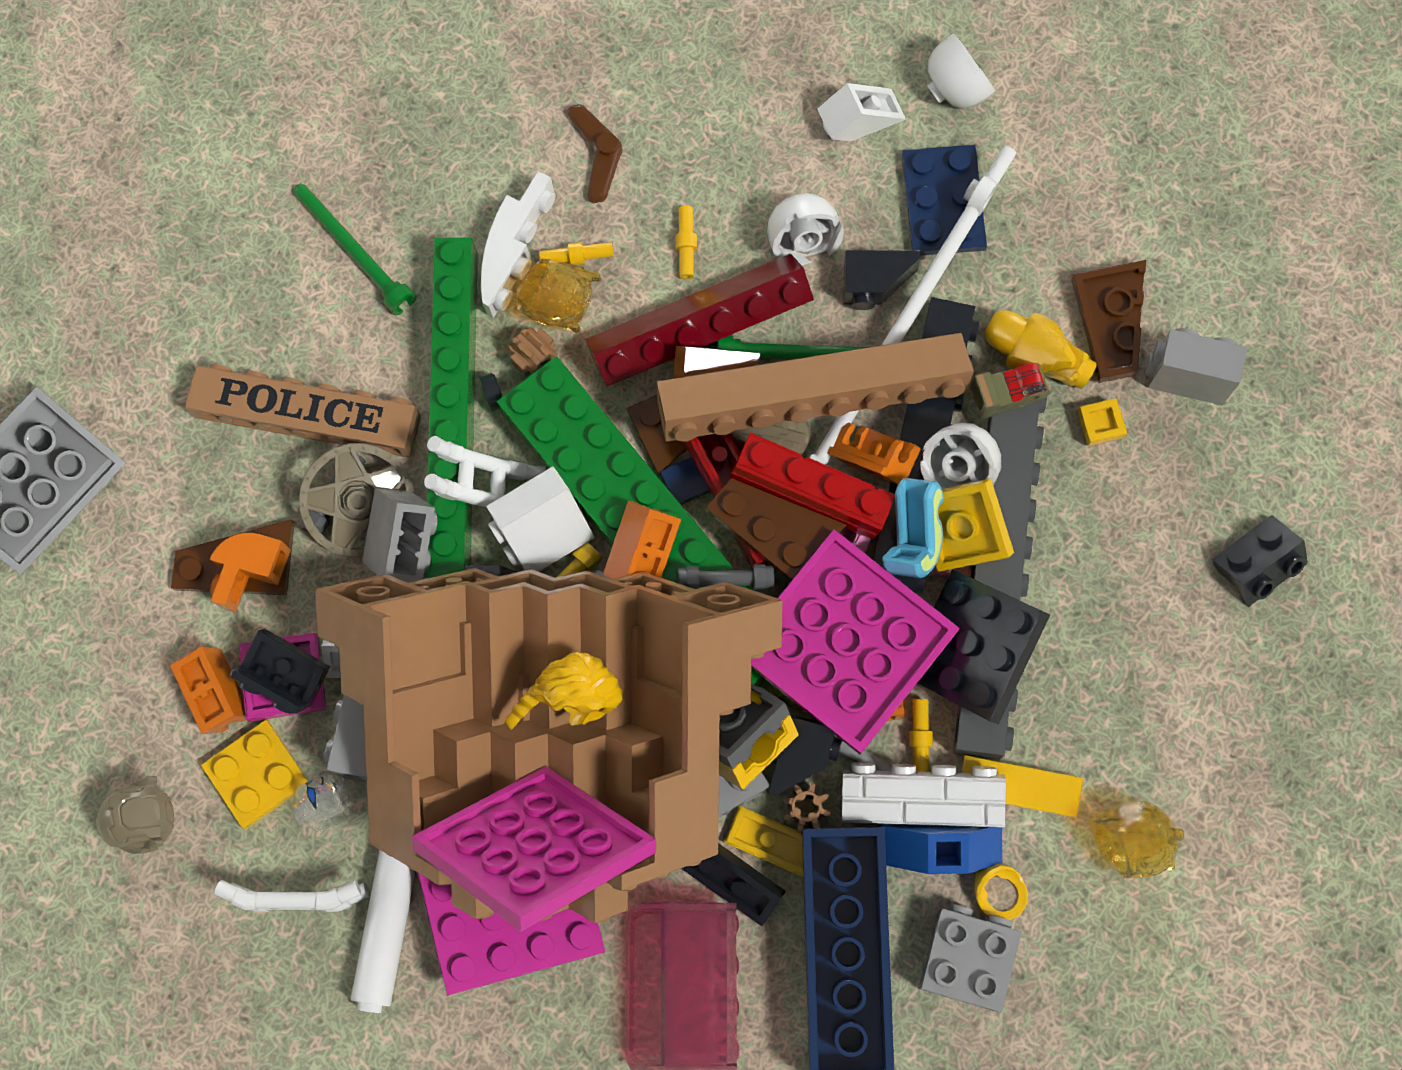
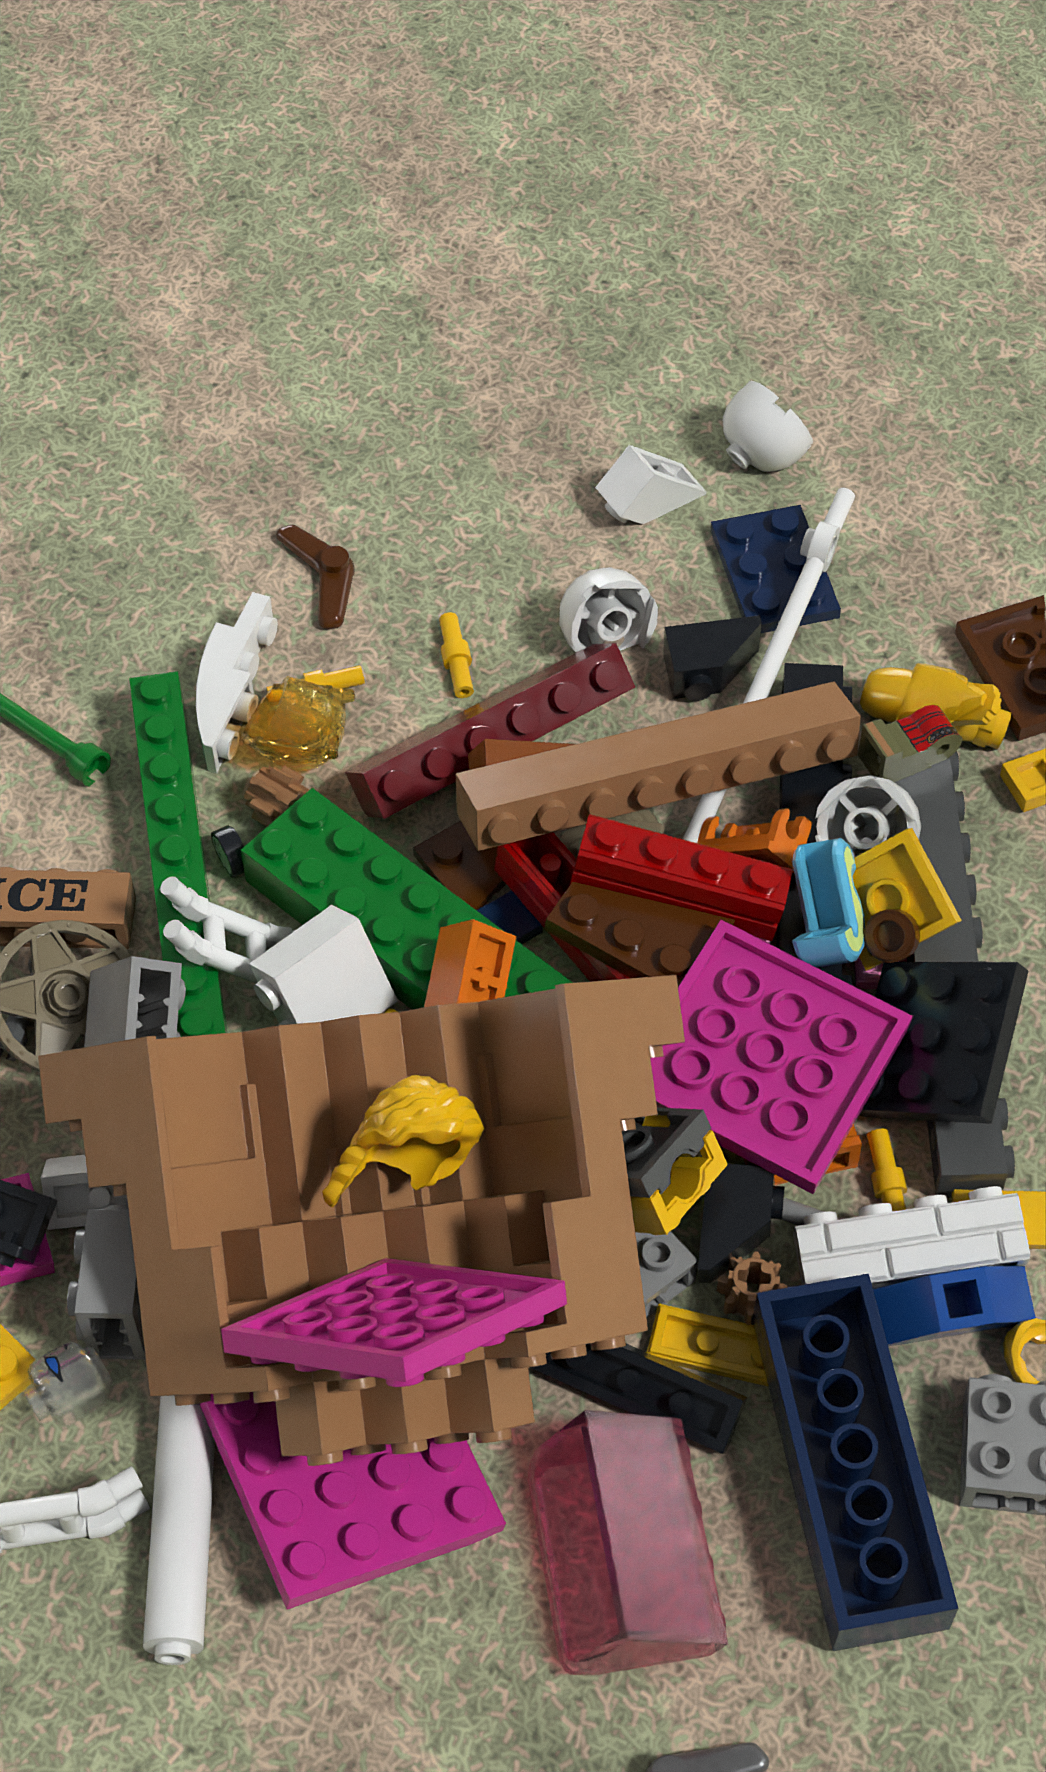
camera: 15 degrees left, 20 degrees down
(960, 555) = (891, 935): none -> reddish brown tile

